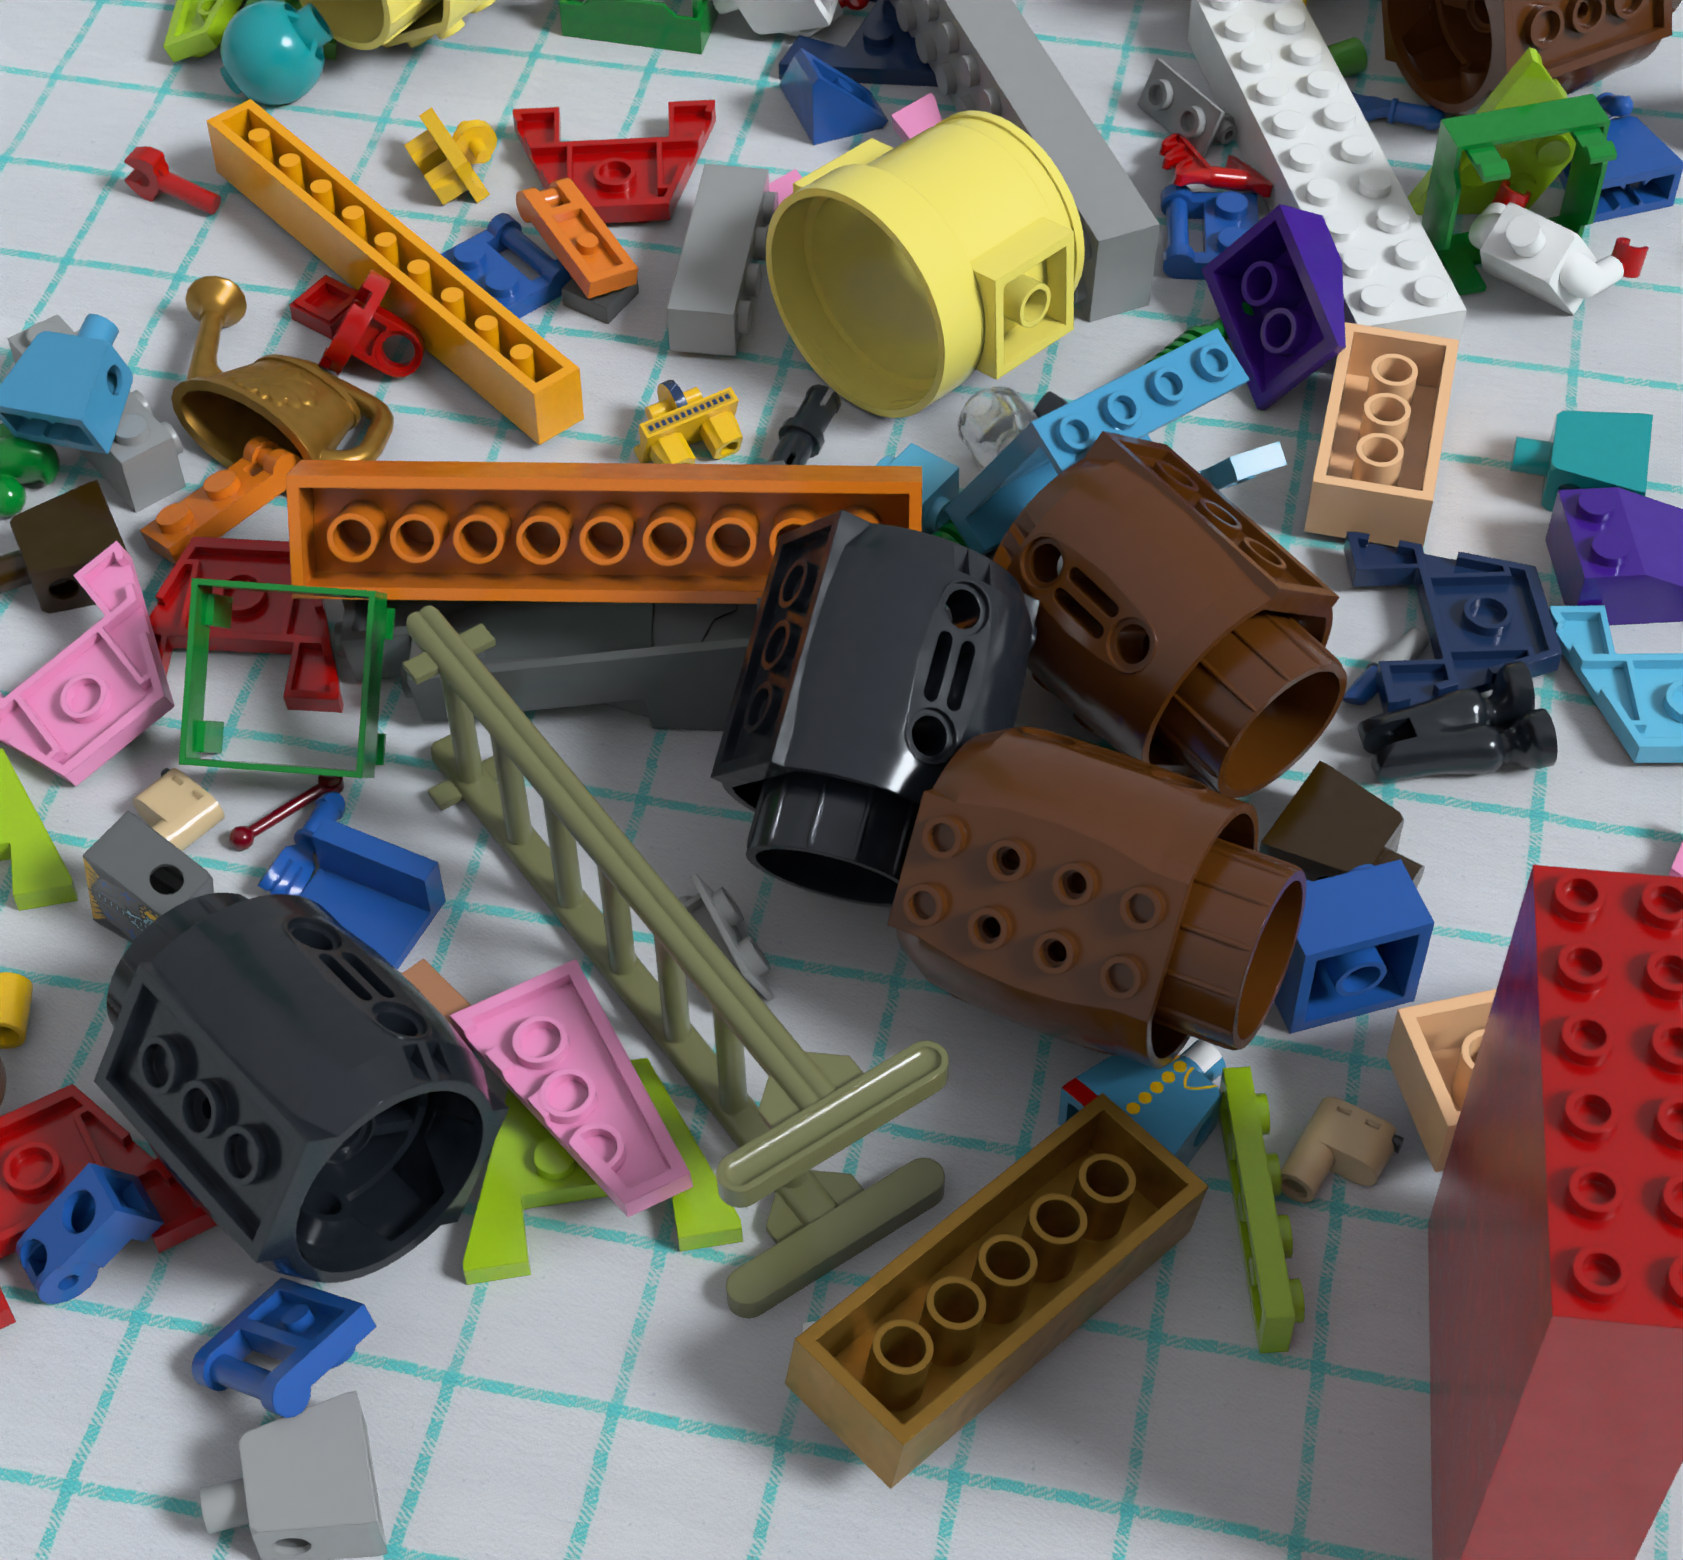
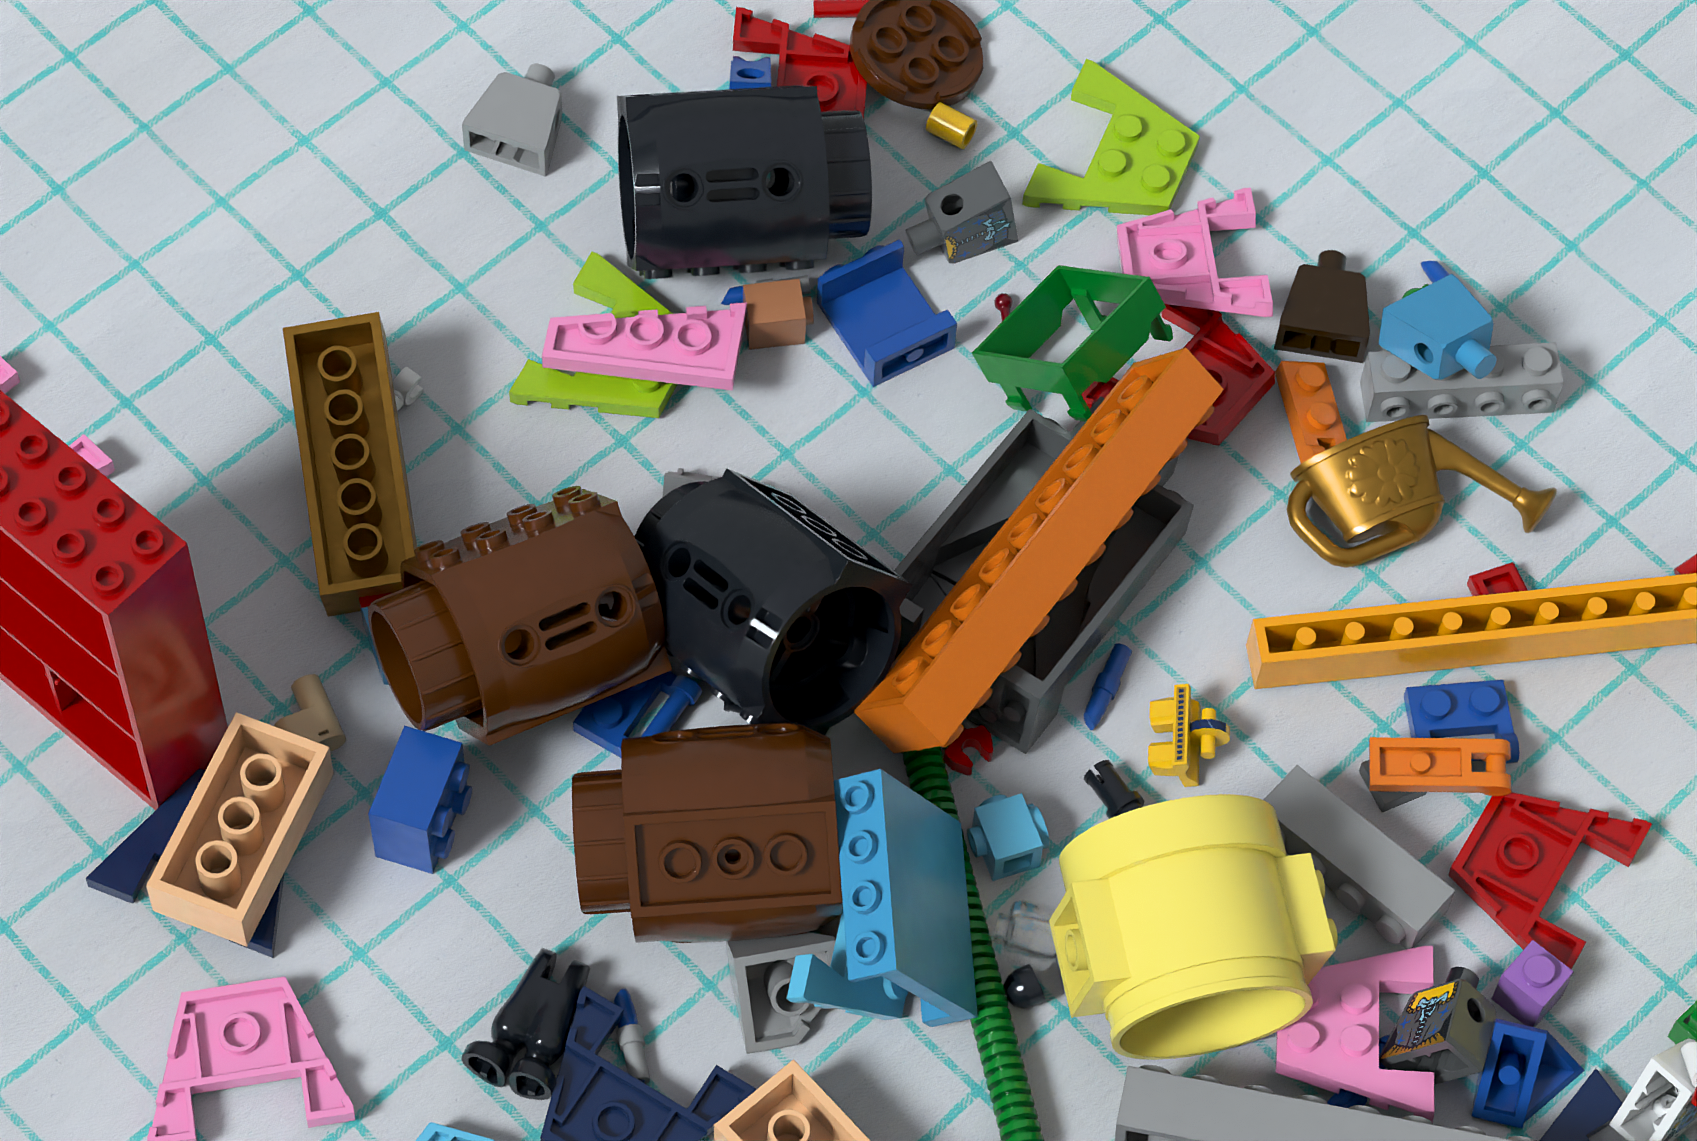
camera: 120 degrees right, 10 degrees up
(178, 808) = (1032, 265): tan piece -> none
(289, 1323) = (588, 149): blue plate -> none
(295, 863) = (951, 300): blue piece -> none
(365, 330) = (1425, 575): red tile -> none
(447, 158) = (1620, 754): yellow hips -> none
(740, 114) = (1532, 984): none -> medium lavender brick
(810, 1099) = (493, 441): olive piece -> none
(837, 120) = (1443, 1030): none -> dark grey torso
(1263, 1234) = (315, 650): lime plate -> none
(1336, 827) = (507, 879): dark brown torso -> none

